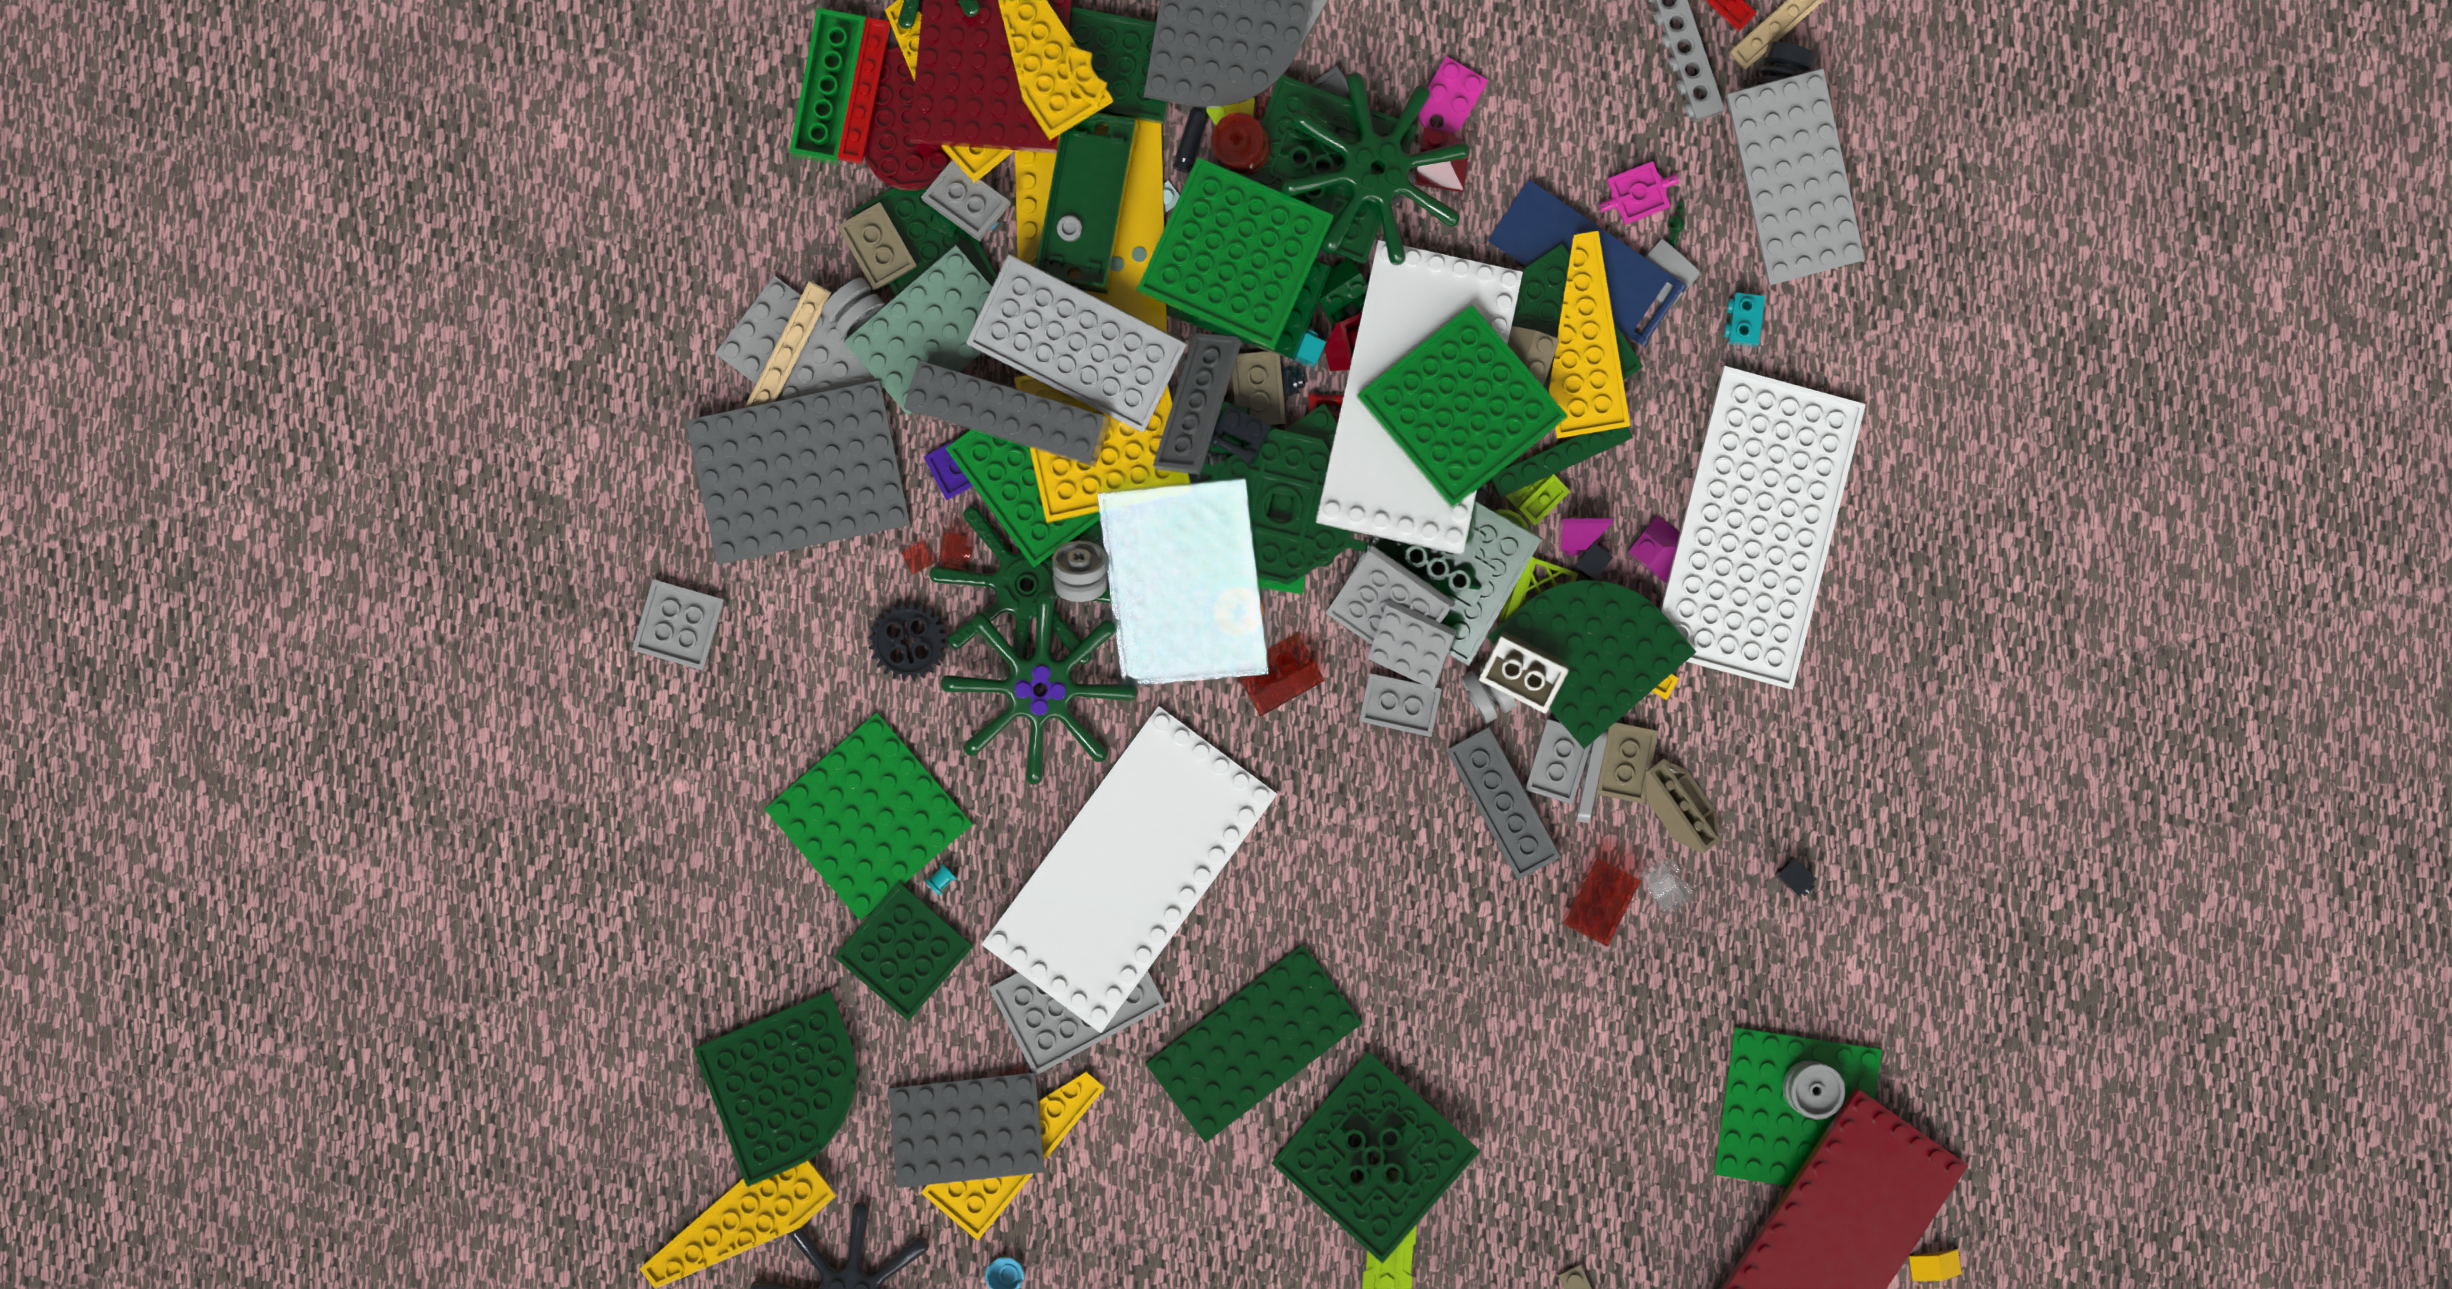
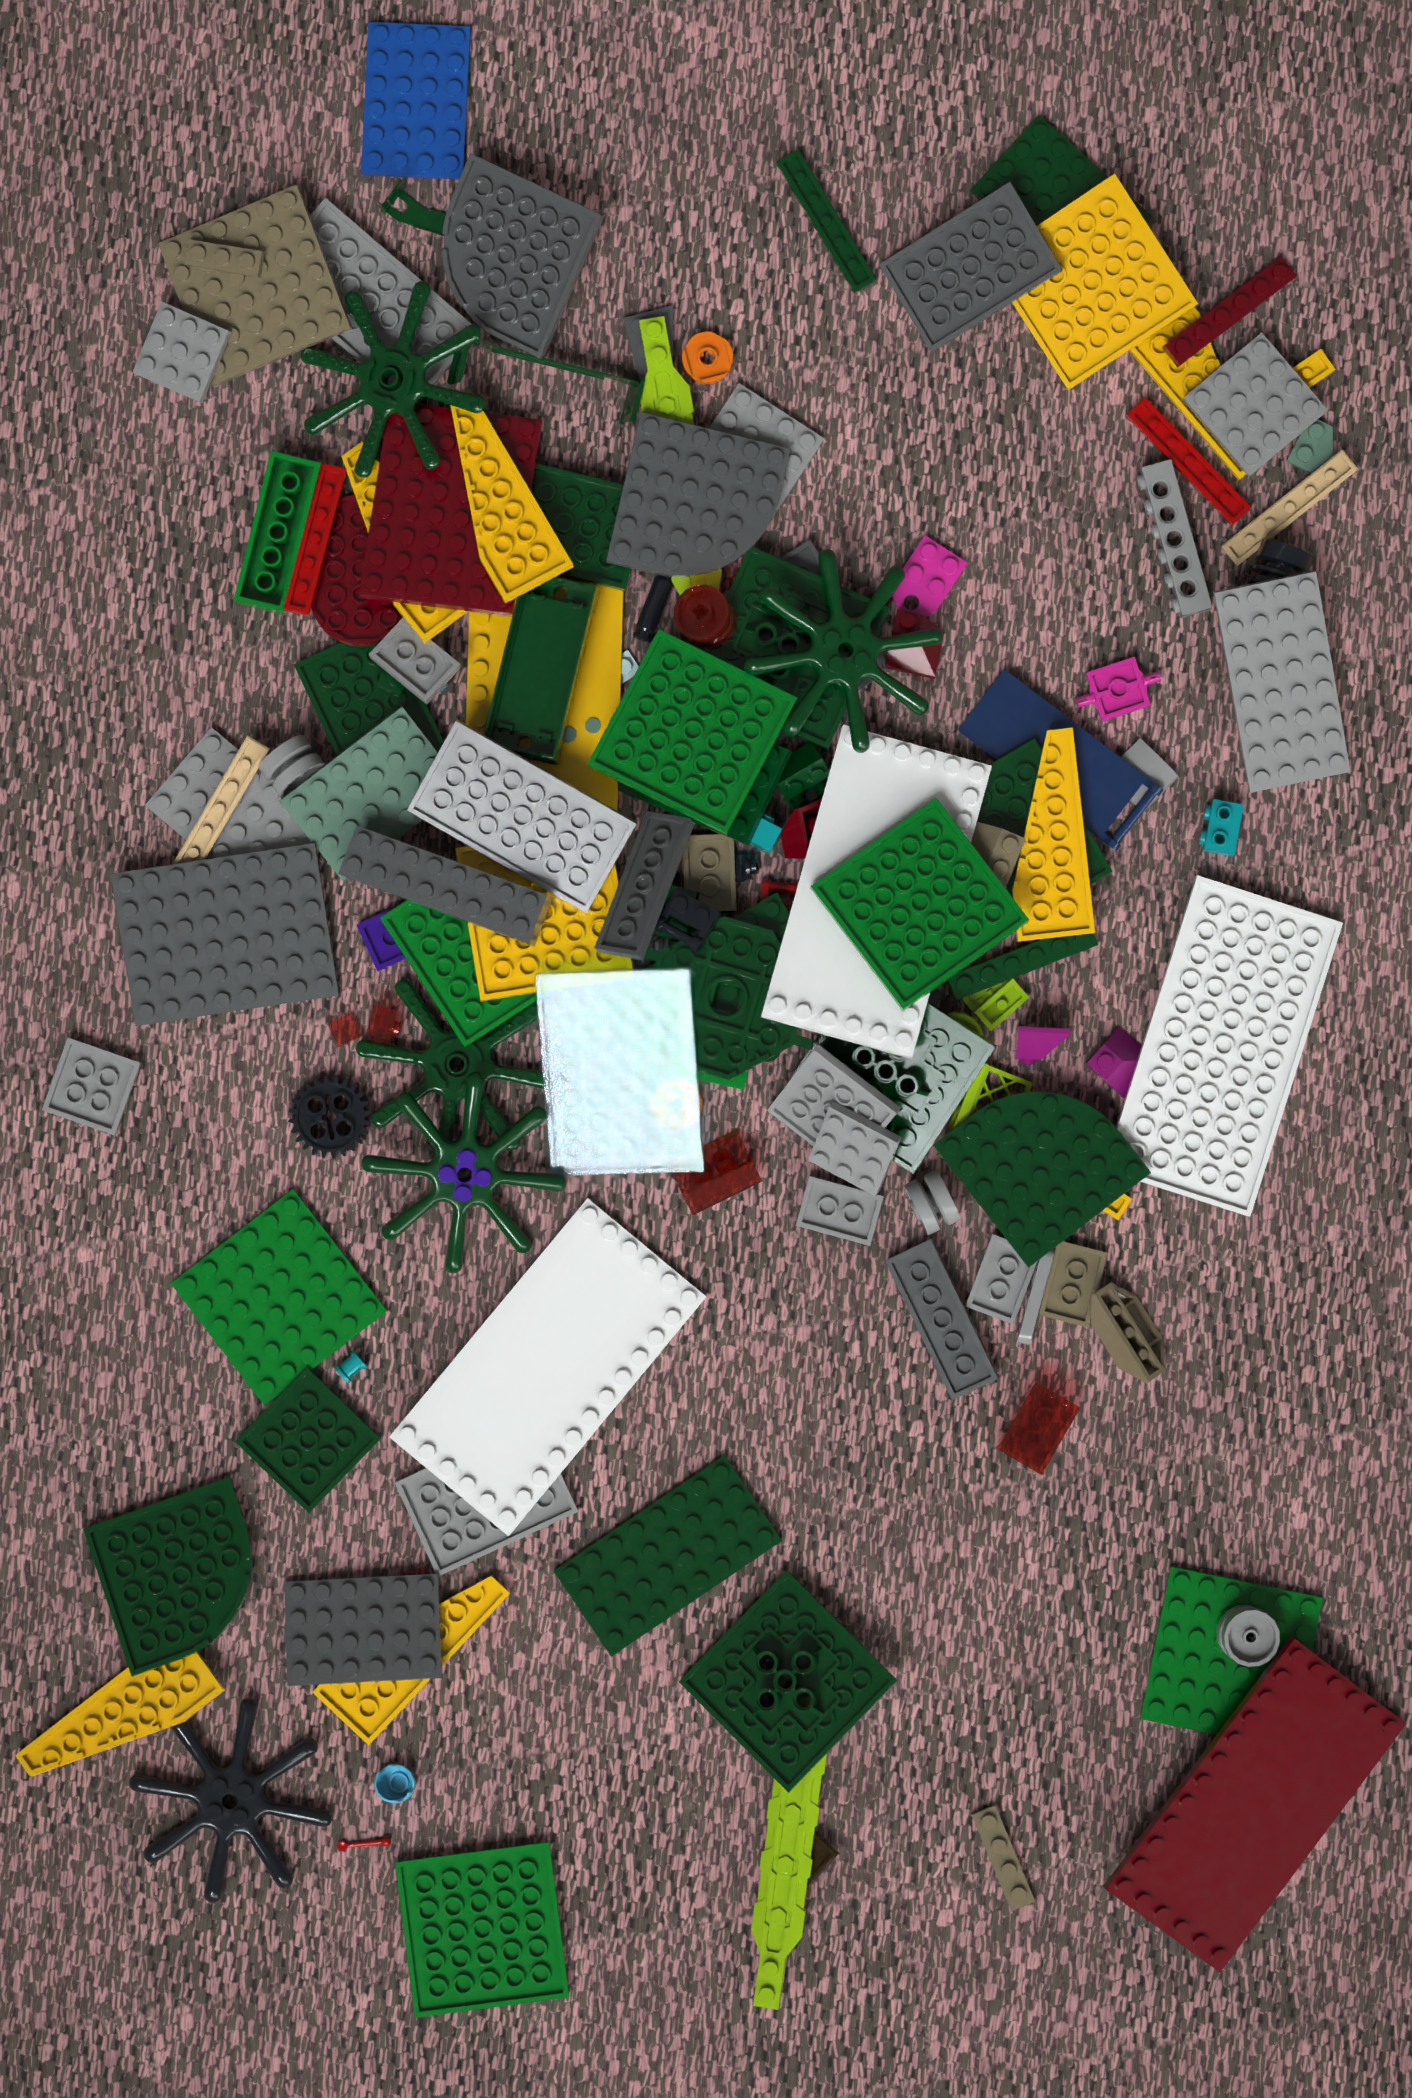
camera: 10 degrees right, 0 degrees up
(877, 246) = (320, 703): dark tan plate -> none
(1069, 228) = (521, 695): light grey tile -> none
(1079, 571) = (512, 1053): light grey wheel -> none
(1082, 77) = (543, 540): yellow tile -> none
(1524, 672) = (969, 1184): dark tan slope -> none
(1593, 561) = (1049, 1072): black brick -> none
(1664, 885) = (1105, 1414): clear brick -> none
(1676, 224) = (1156, 723): dark green piece -> none
(1796, 878) = (1243, 1413): black brick -> none
(1935, 1265) = (1366, 1826): yellow slope -> none

